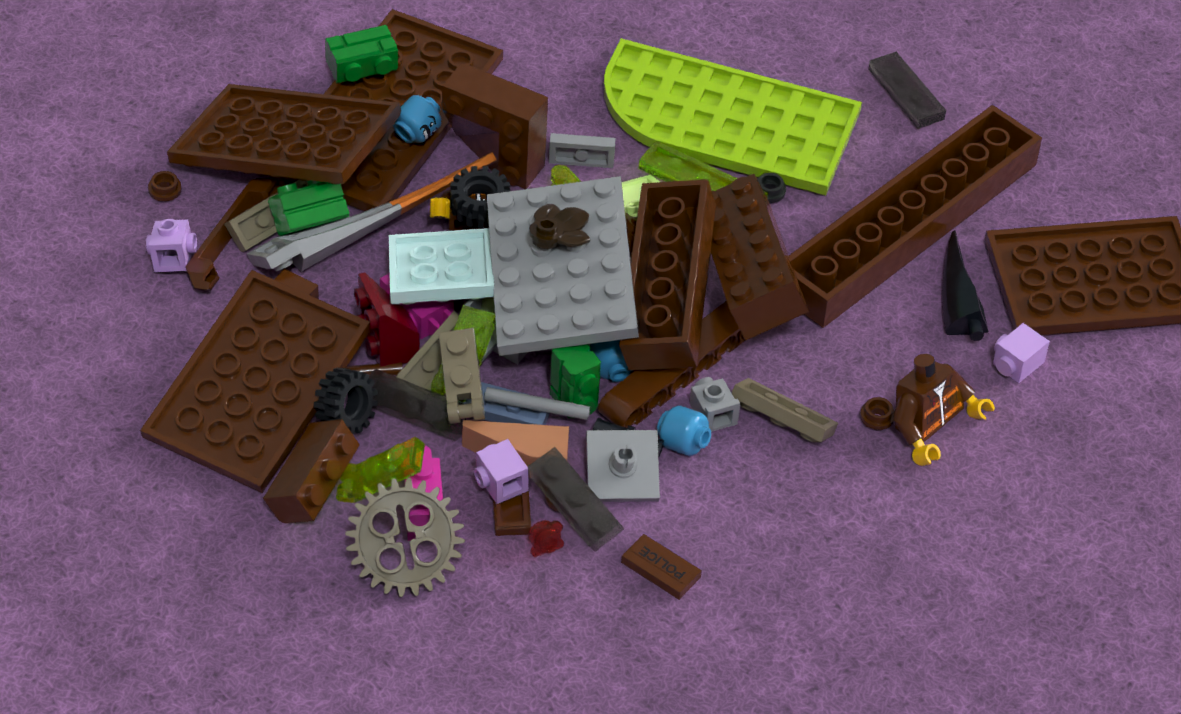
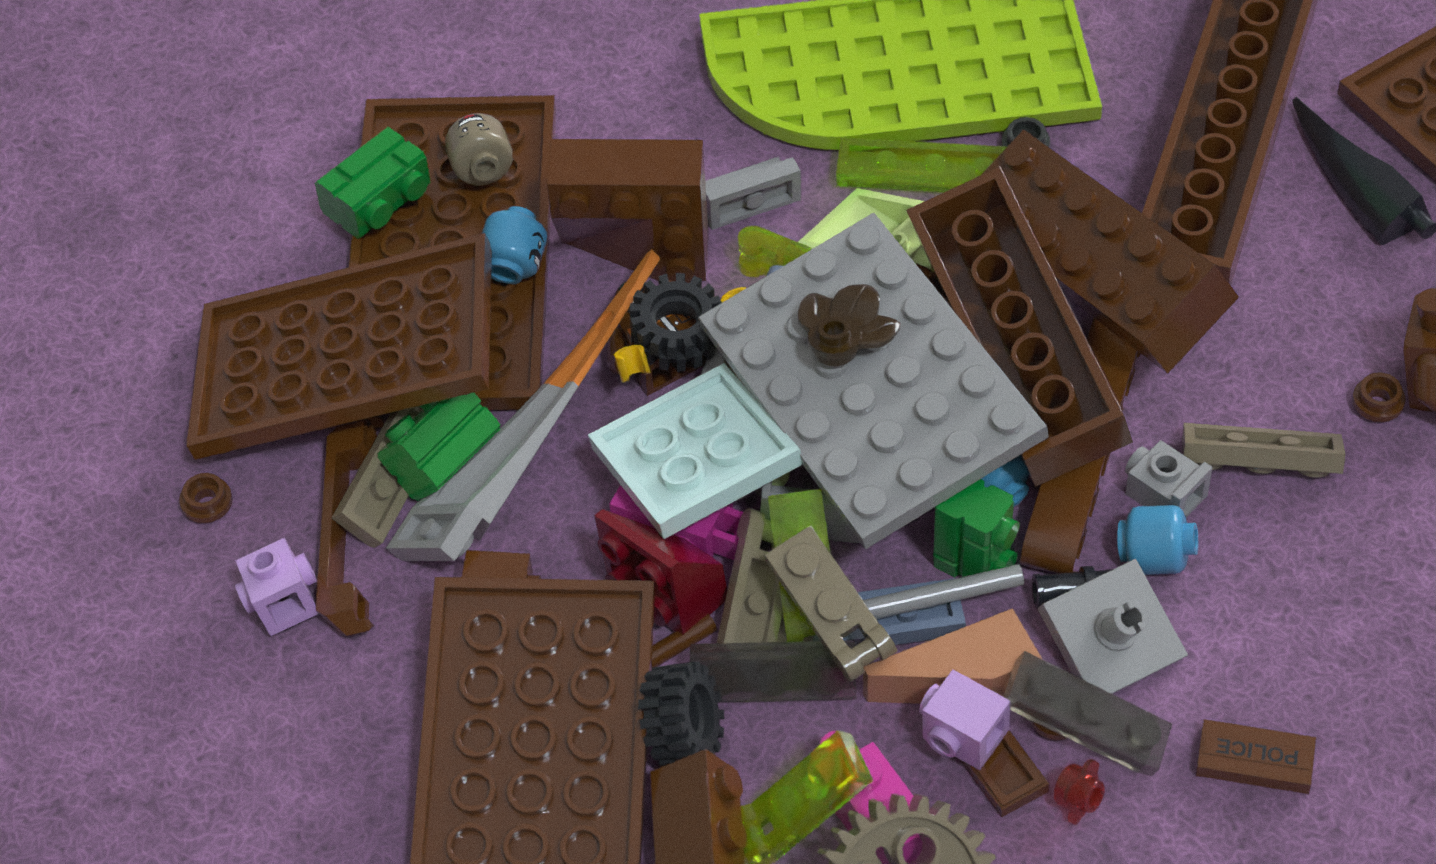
camera: 20 degrees left, 5 degrees up
(433, 60) = (476, 146): none -> dark tan head

